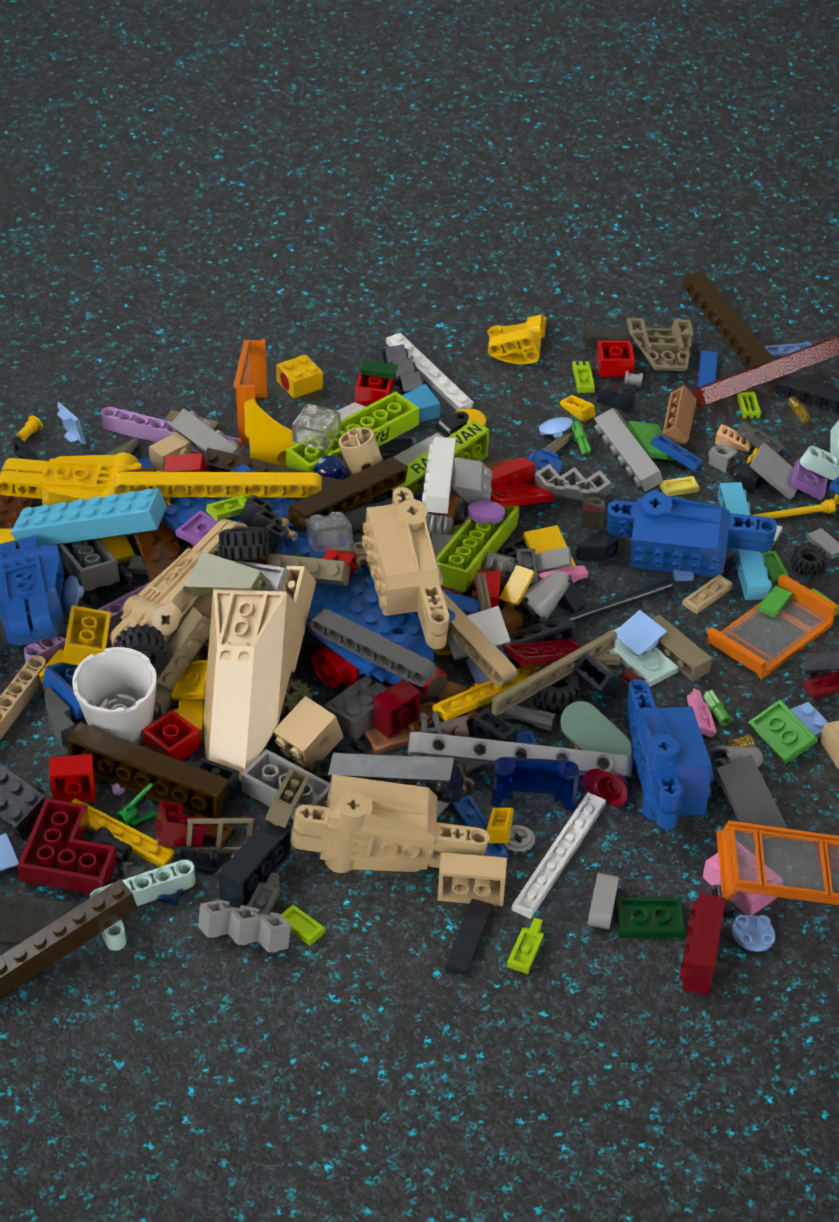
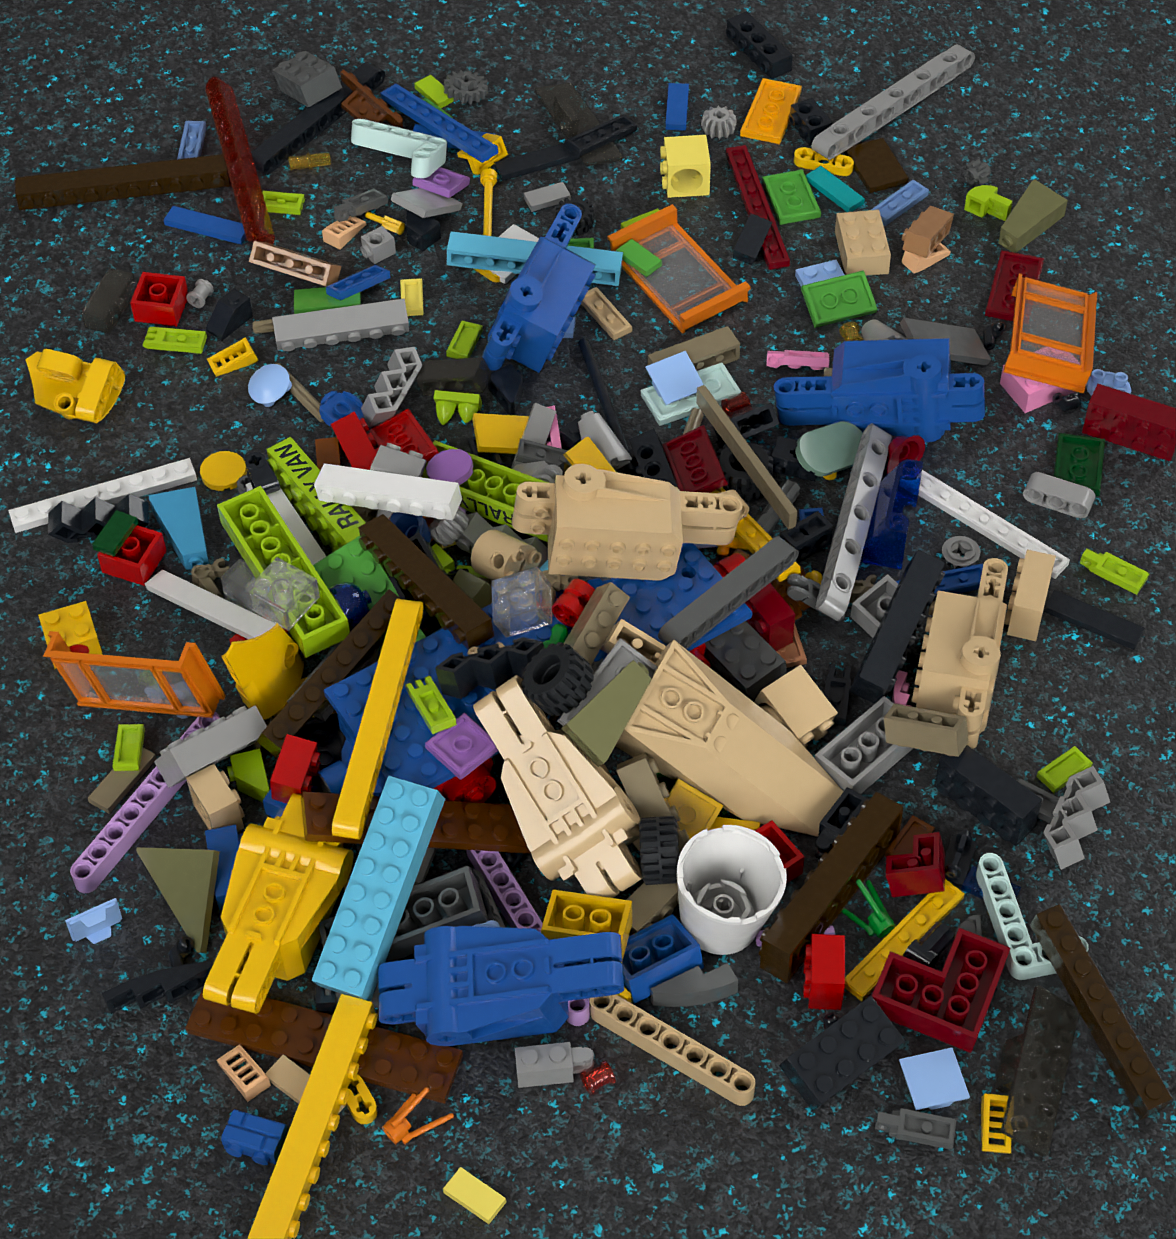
camera: 75 degrees left, 10 degrees up
(31, 426) = (69, 981): yellow pin -> none
(215, 417) = (128, 747): none -> lime tile
(220, 821) = (942, 822): dark tan window -> none
(359, 449) = (338, 557): tan cylinder -> none
(500, 825) = (962, 558): yellow slope -> none
(573, 522) = (448, 401): none -> lime tile
(581, 438) = (303, 364): bright green axle -> none
(663, 346) = (149, 245): dark tan wedge -> none
(717, 708) = (792, 343): bright green axle -> none

